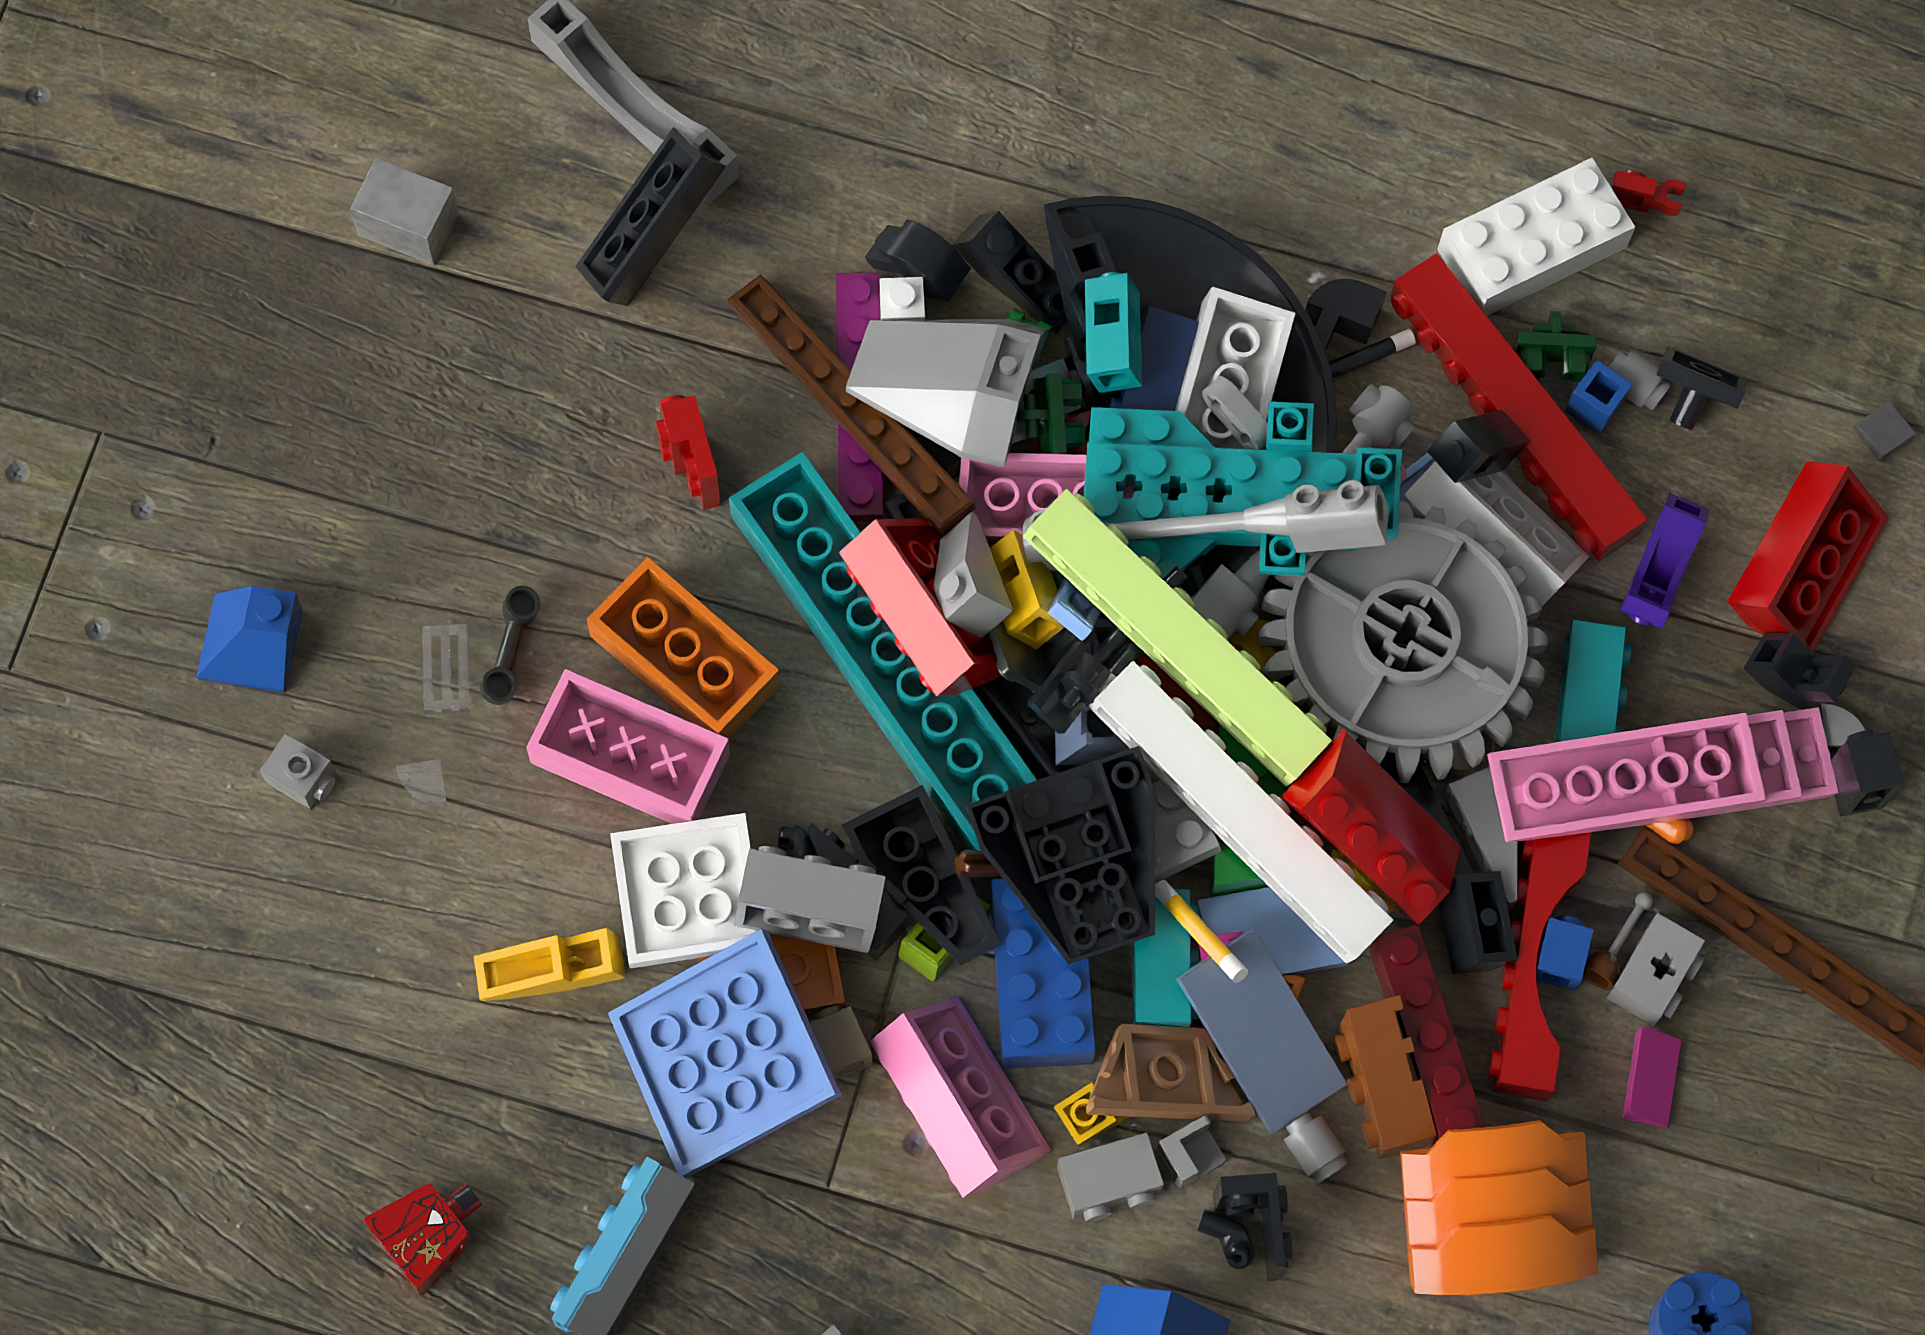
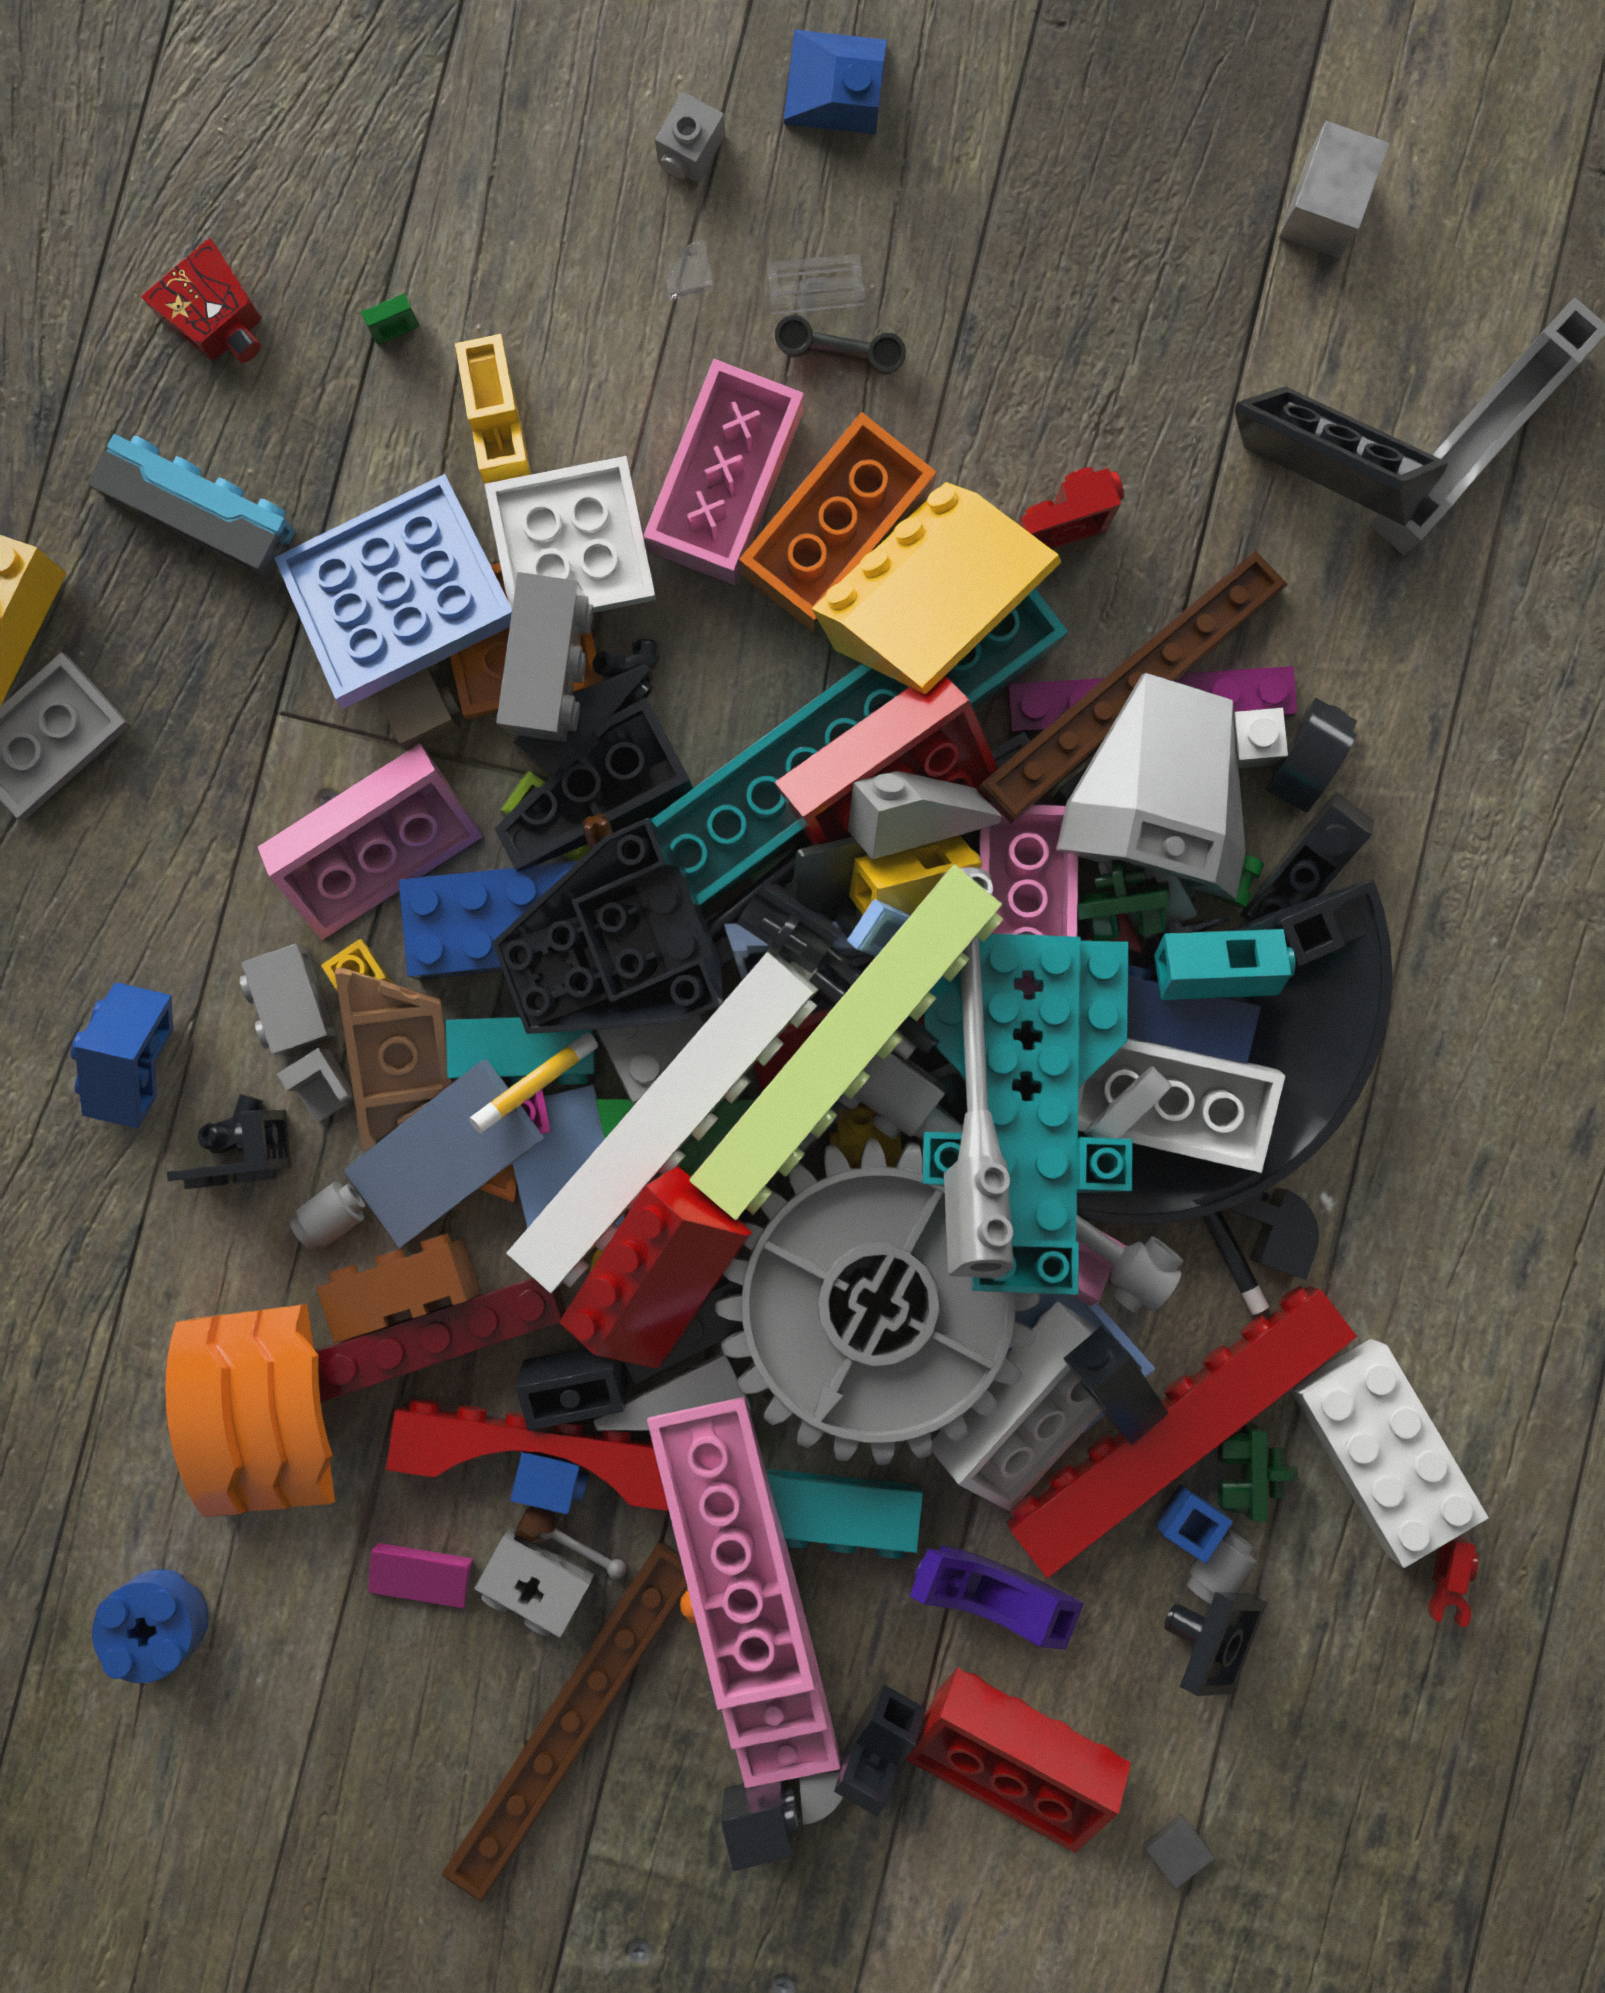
camera: 90 degrees right, 15 degrees up
(452, 1057) = (390, 319): none -> green tile
(761, 558) = (934, 588): none -> yellow slope

